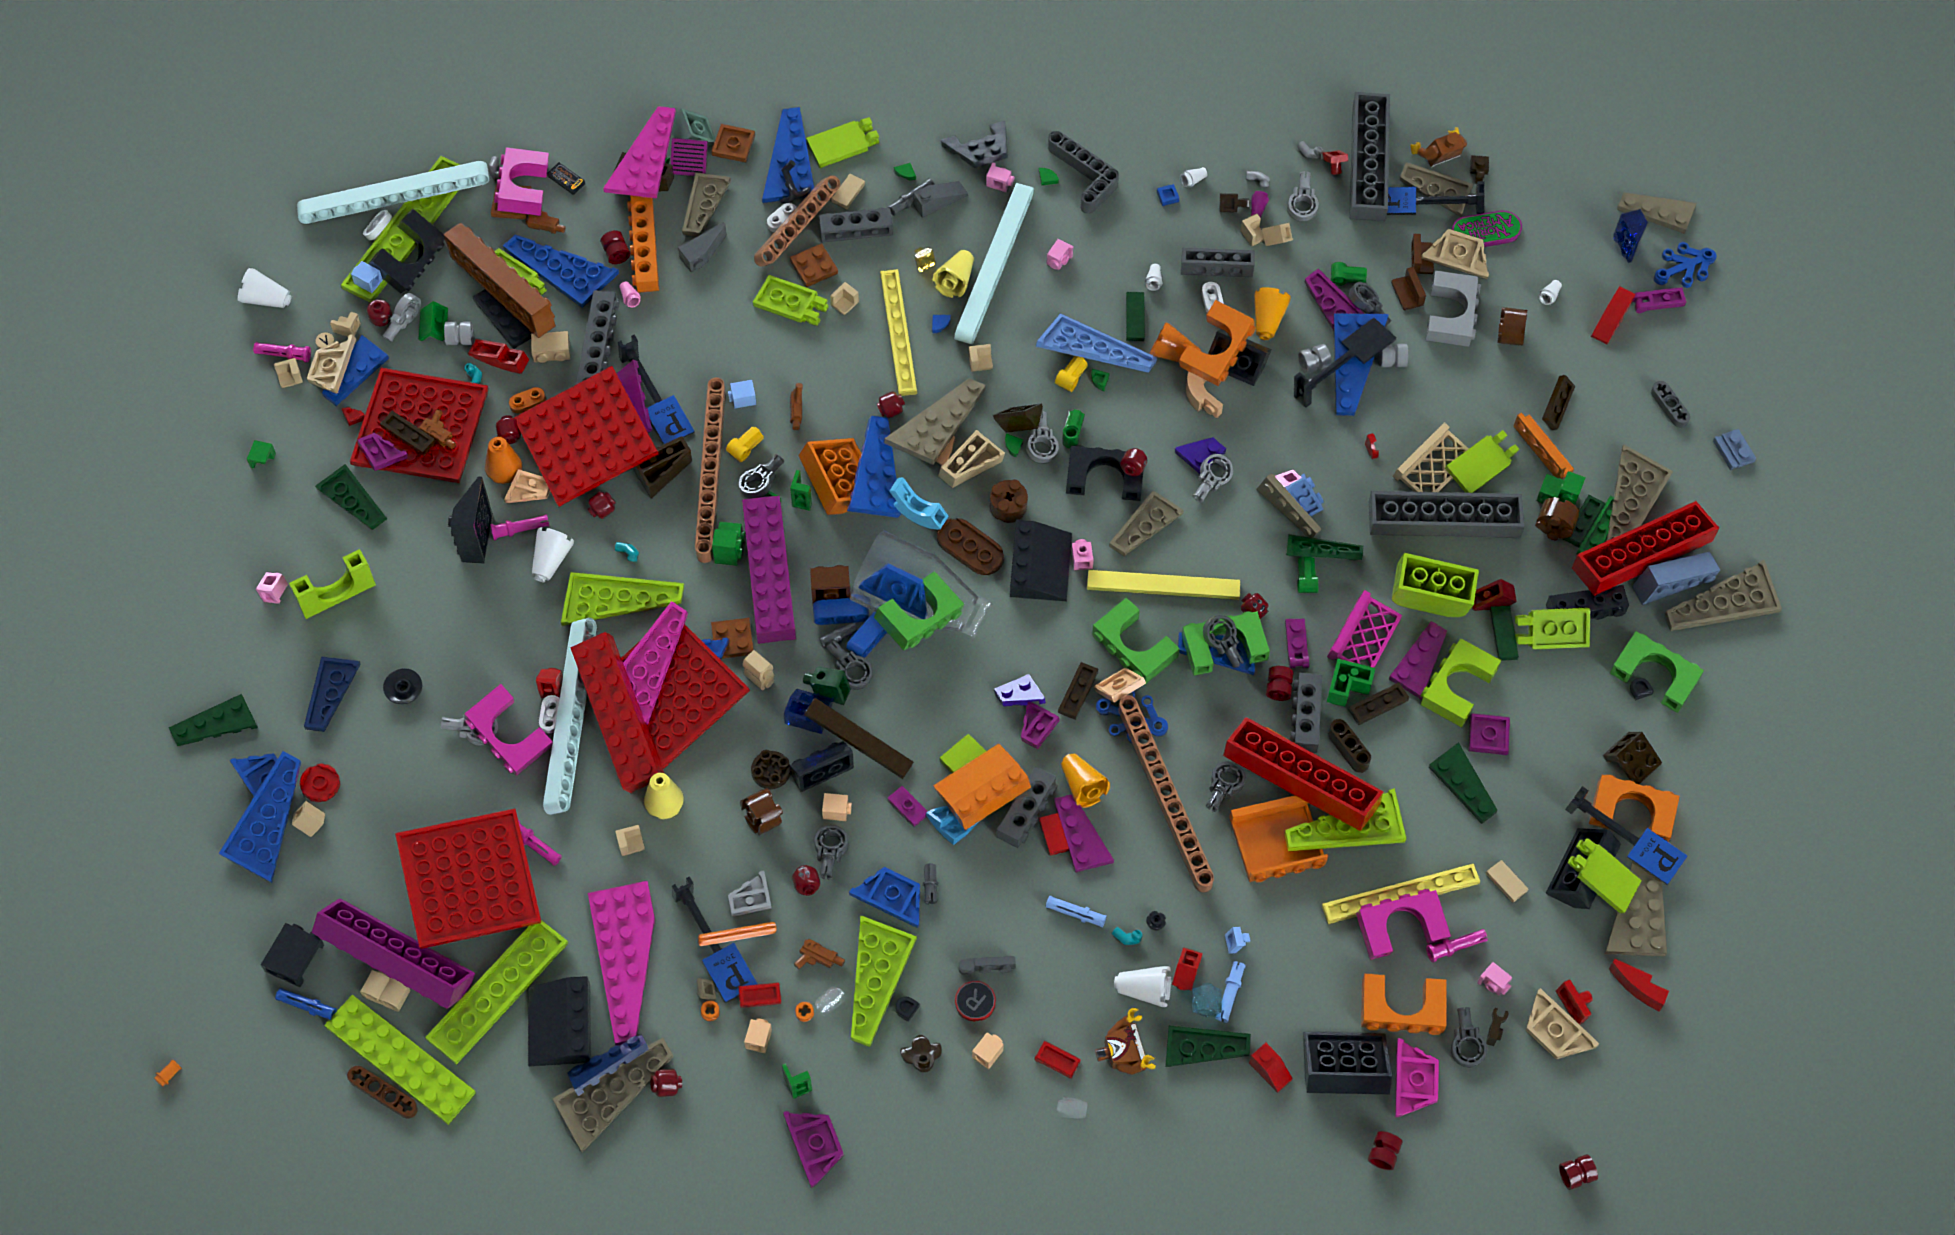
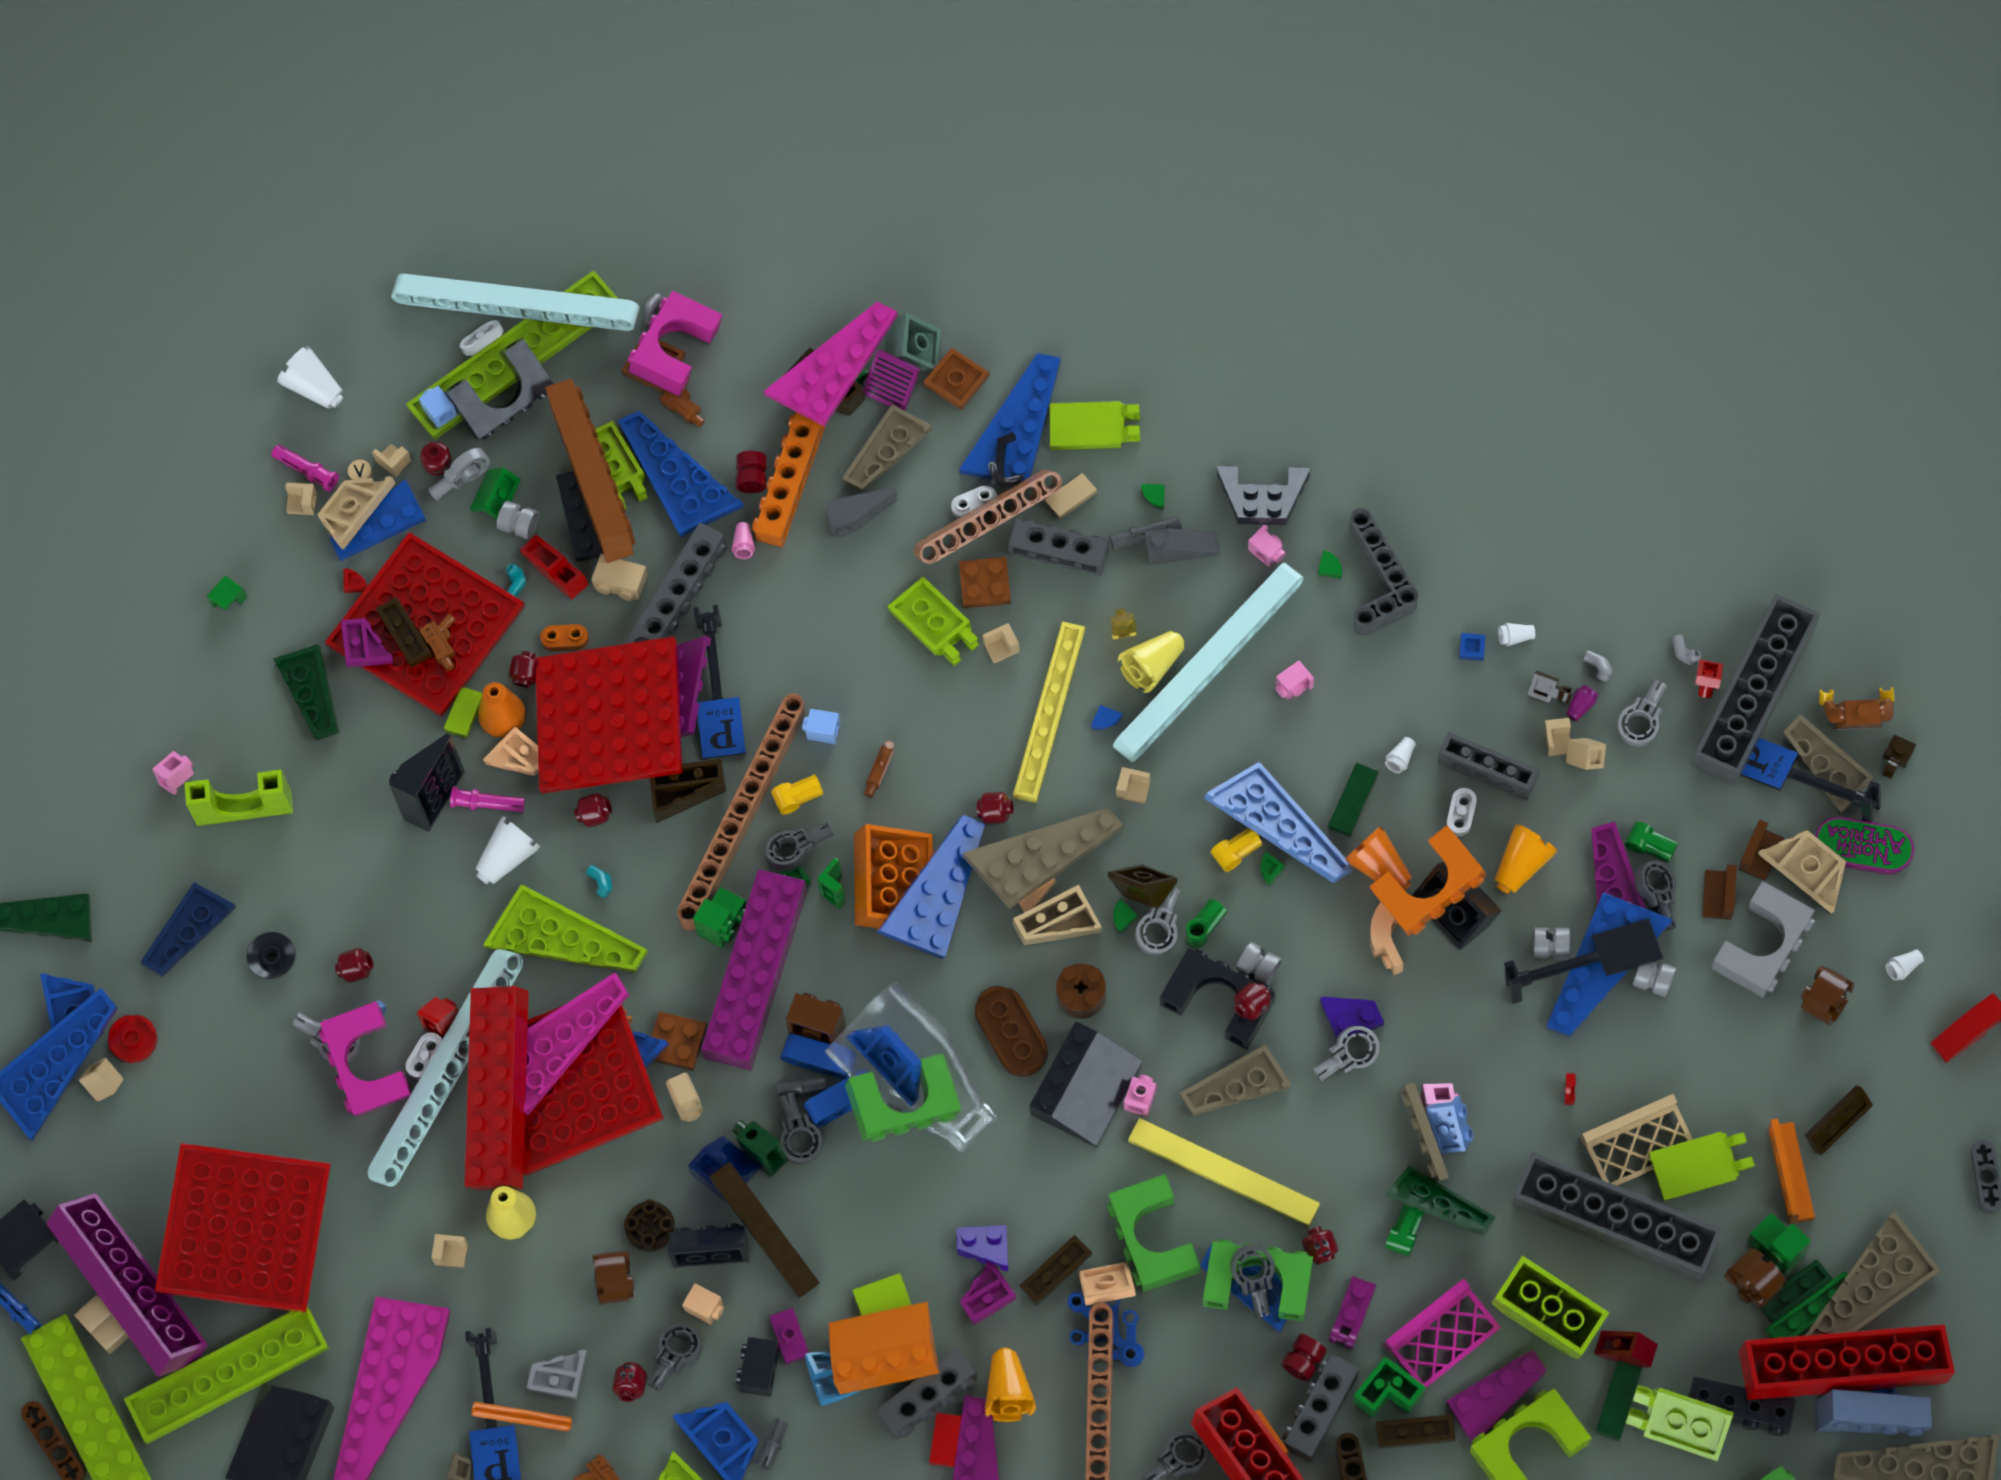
camera: 30 degrees right, 5 degrees up
(469, 670) = (354, 965): none -> dark red head
(473, 468) = (463, 712): none -> lime tile
(528, 835) = (335, 1200): dark pink pin -> none
(566, 178) = (733, 354): black tile -> none
(896, 834) = (758, 1366): none -> black brick
(915, 508) = (964, 956): medium azure arch -> none
(1123, 440) = (1261, 965): none -> light grey wheel

